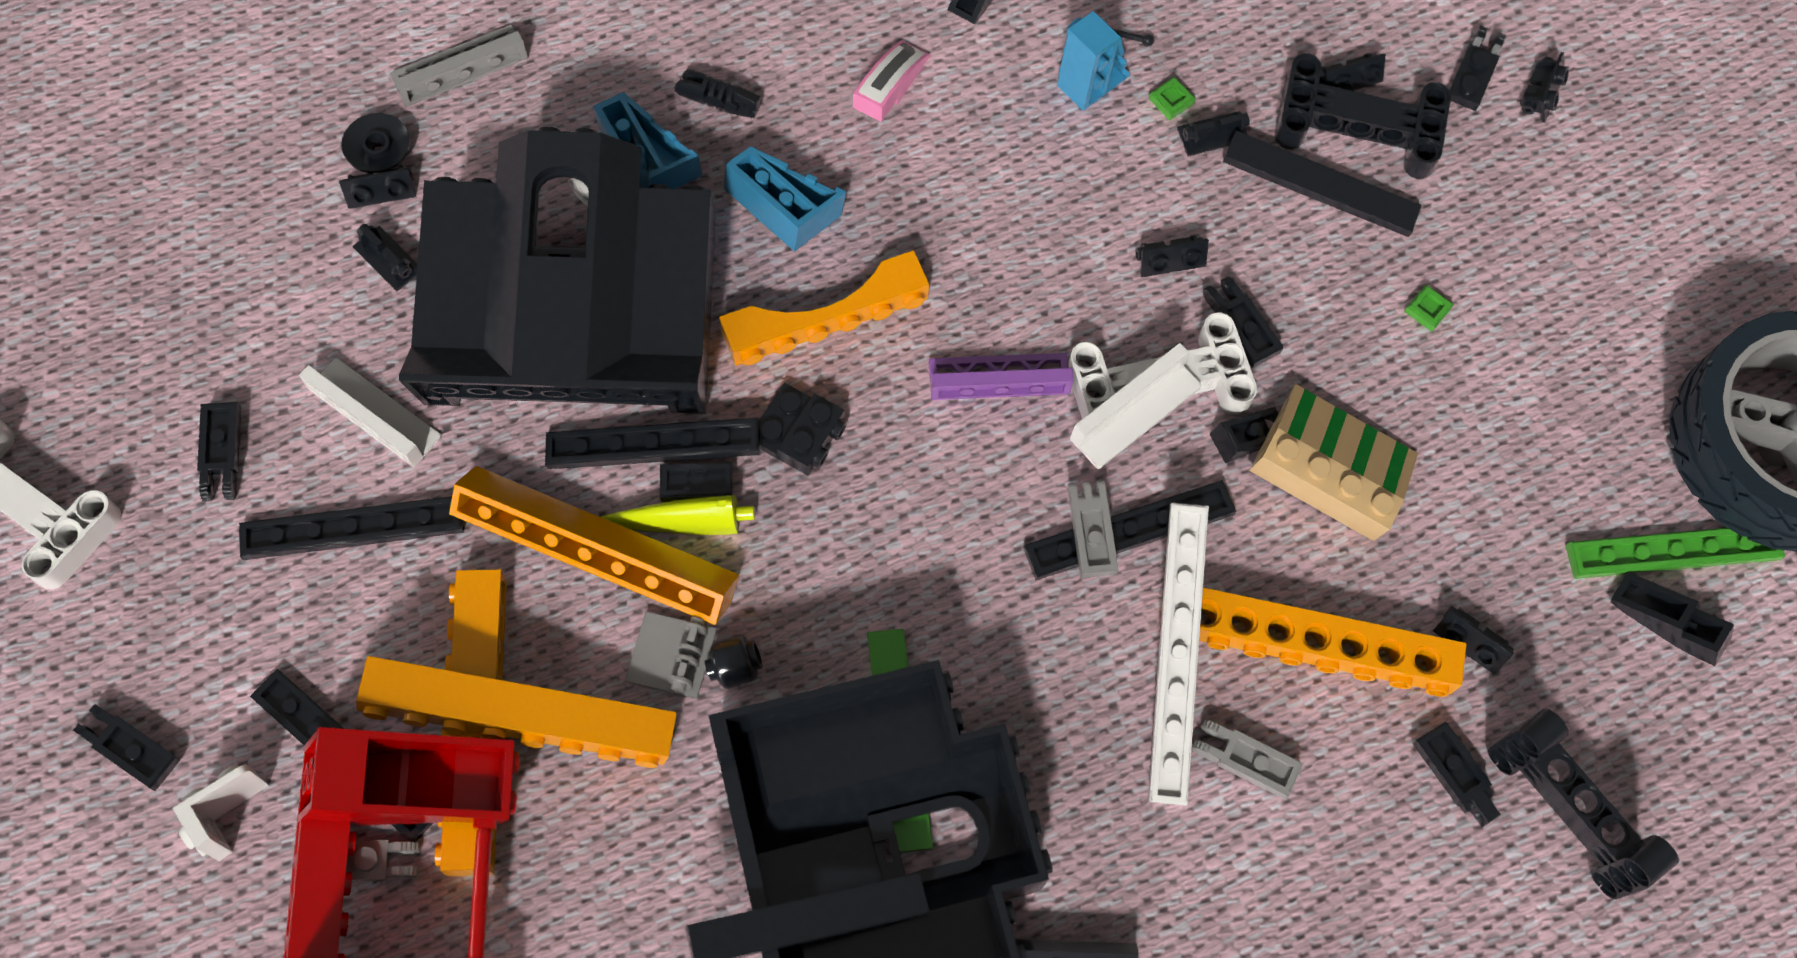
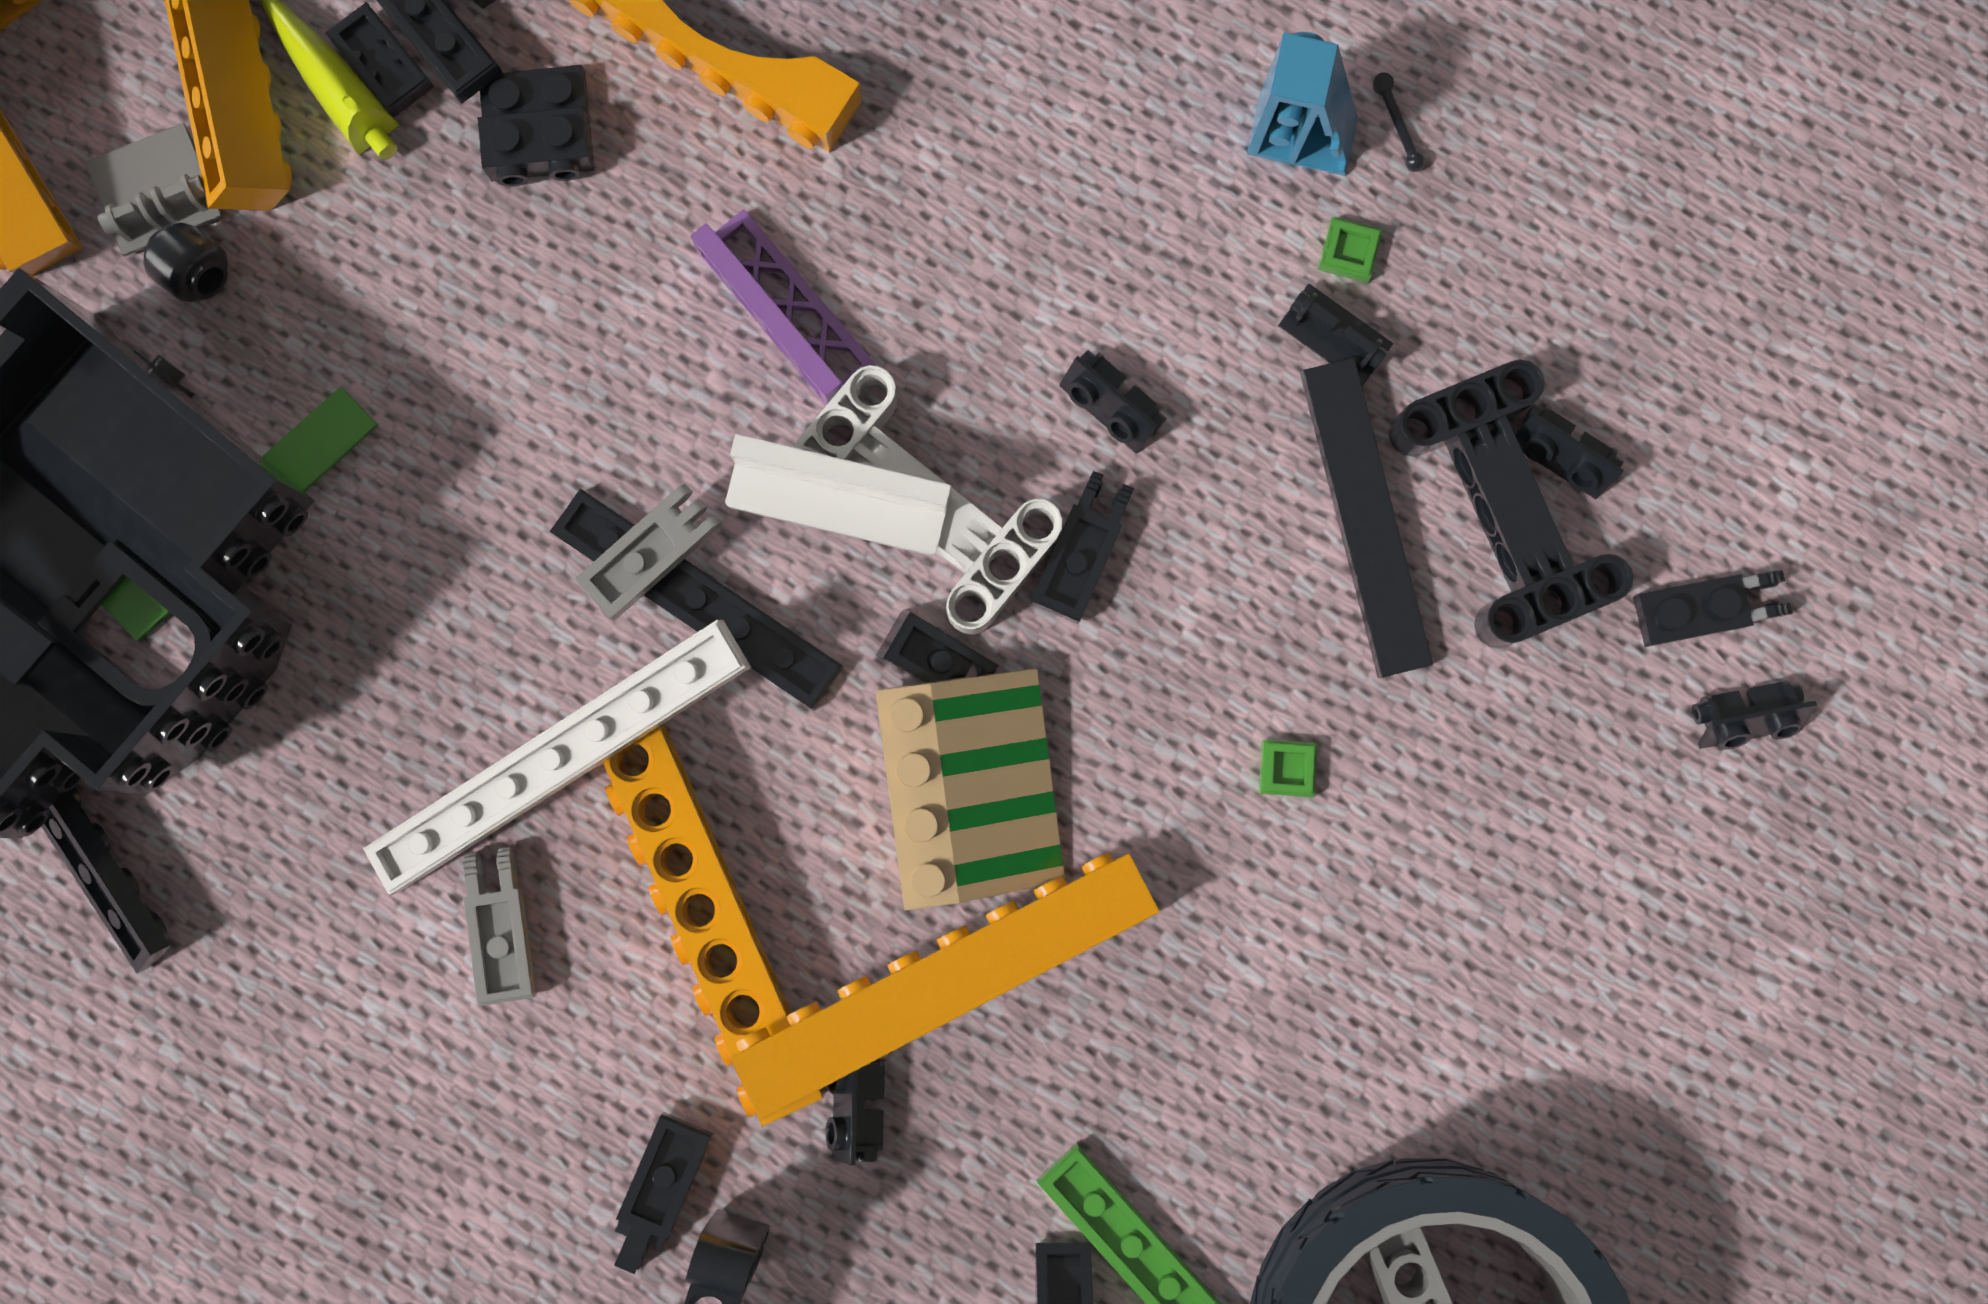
camera: 50 degrees right, 15 degrees up
(1443, 542) = (942, 986): none -> light orange brick

